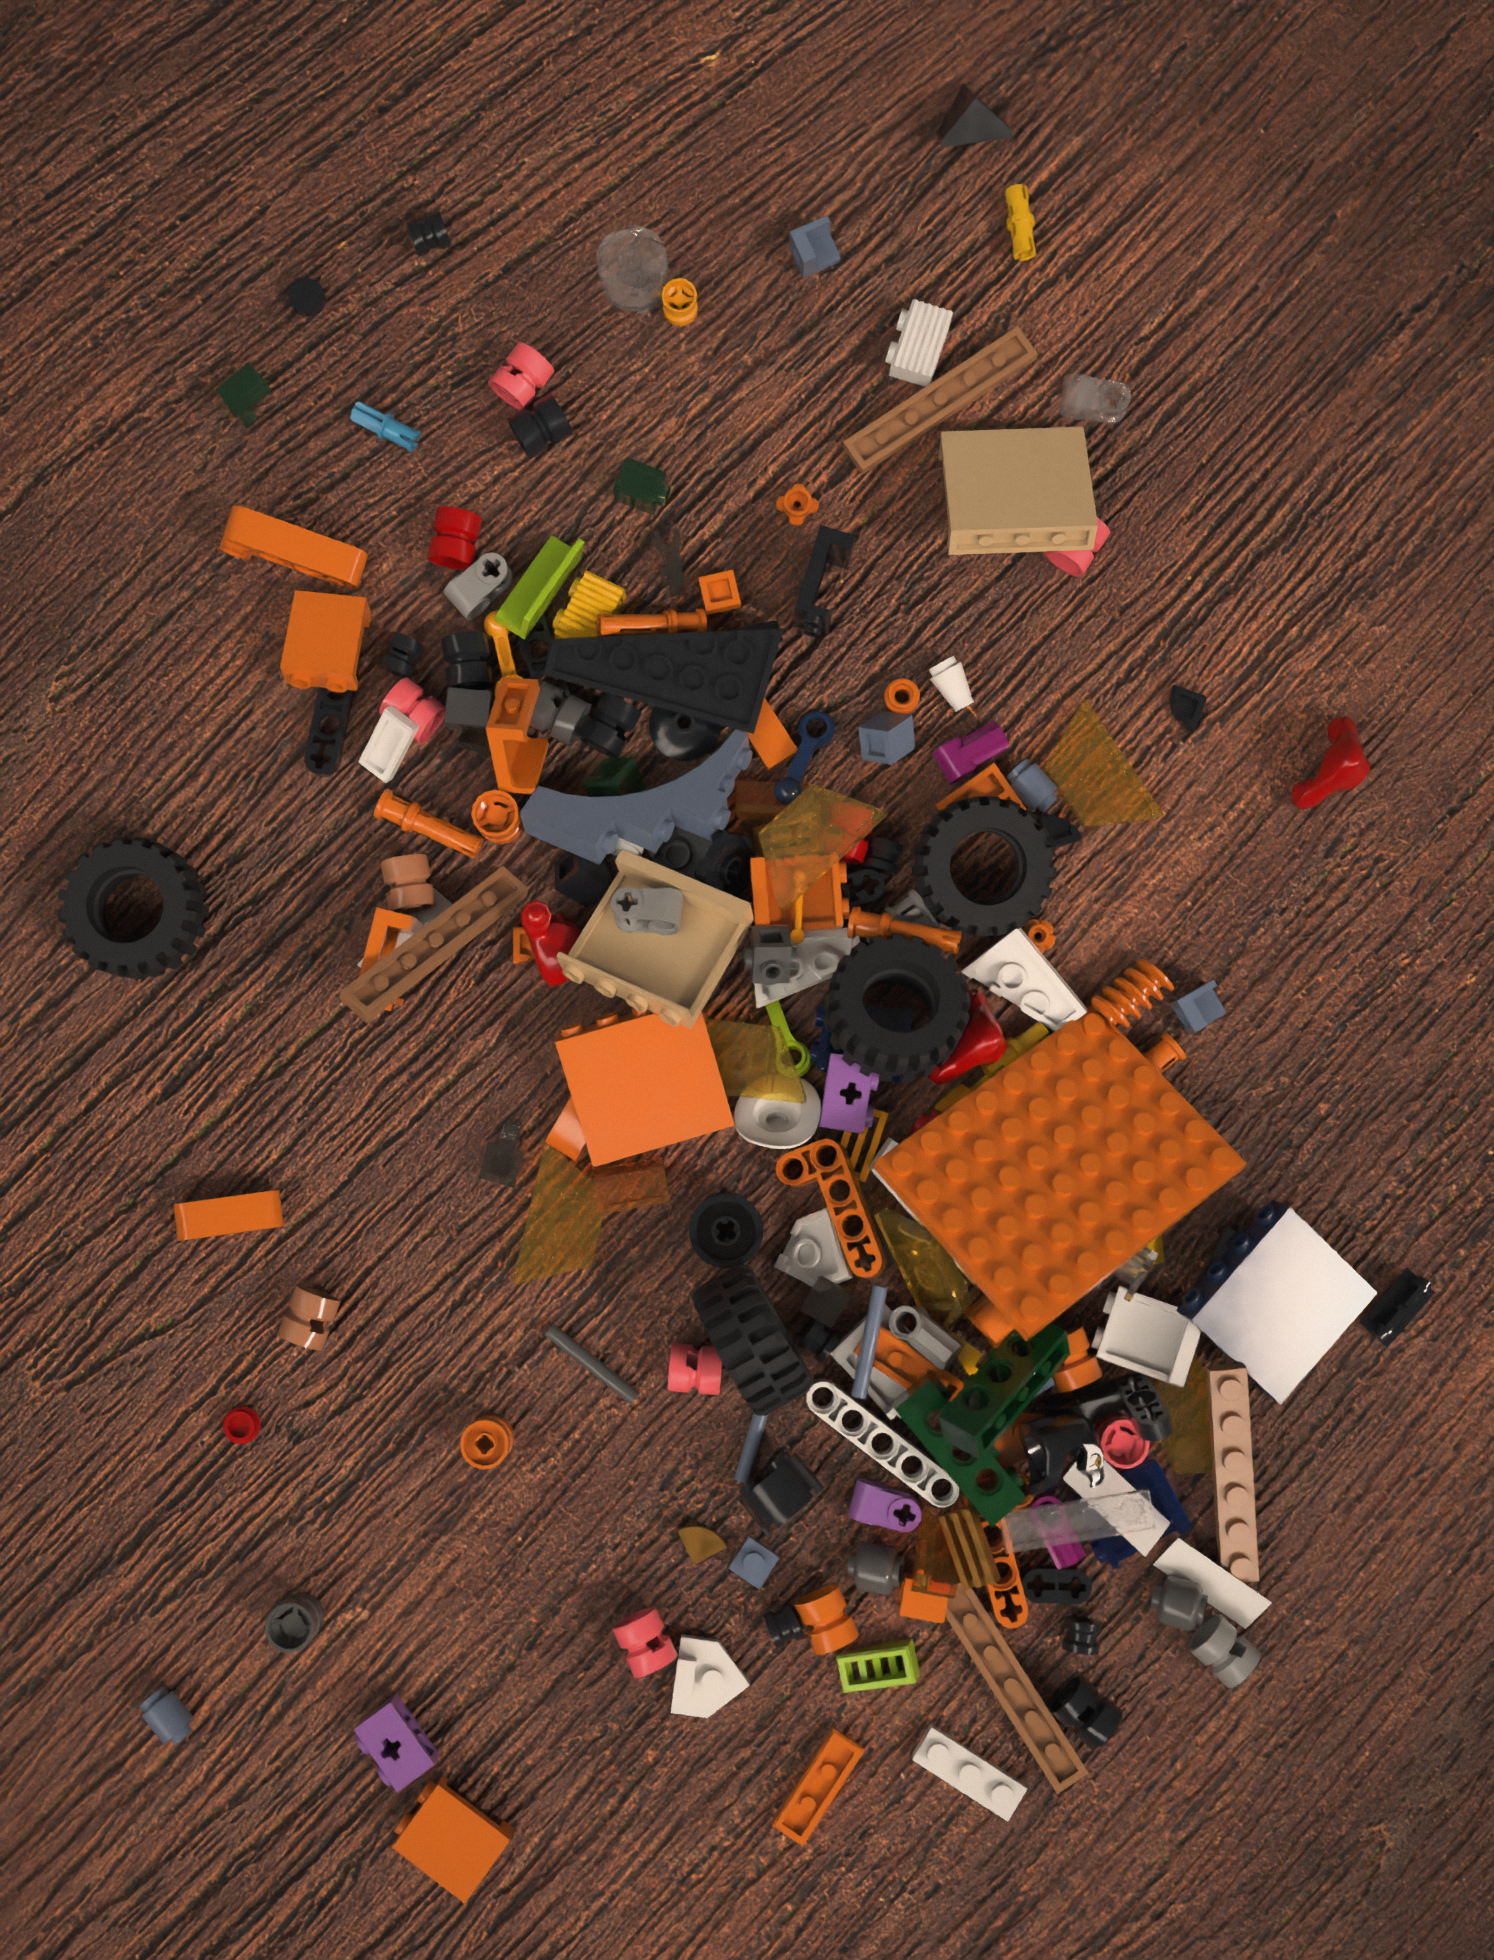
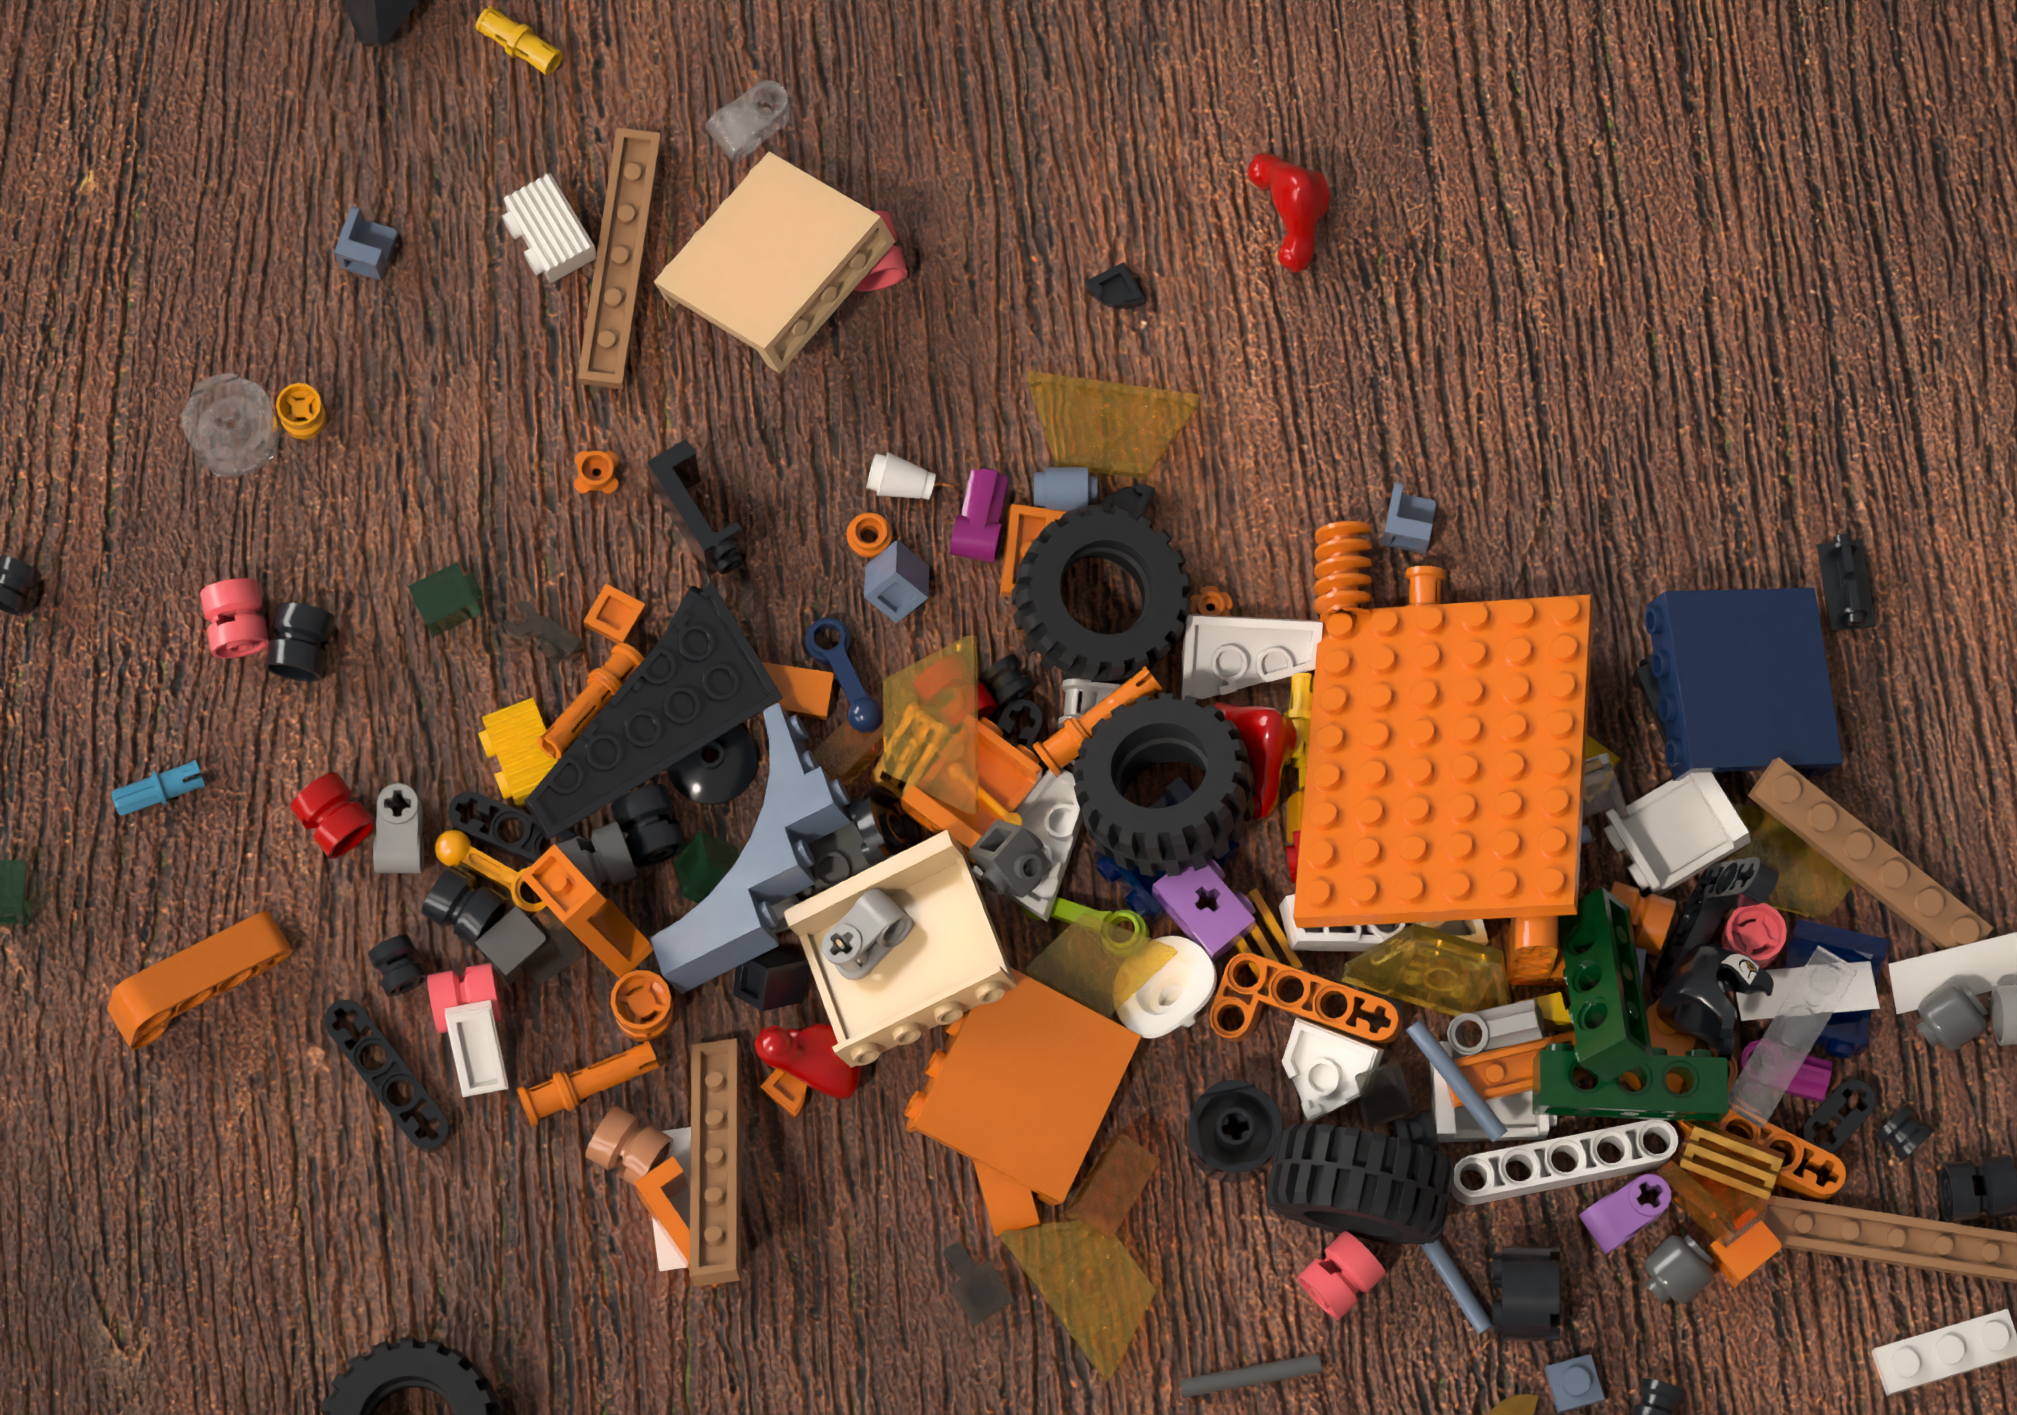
camera: 50 degrees left, 10 degrees down
(324, 640) = (320, 1021): orange panel -> none
(539, 586) = (454, 775): lime panel -> none
(824, 1613) = (1687, 1356): orange wheel -> none
(876, 1653) = (1789, 1360): lime slope -> none

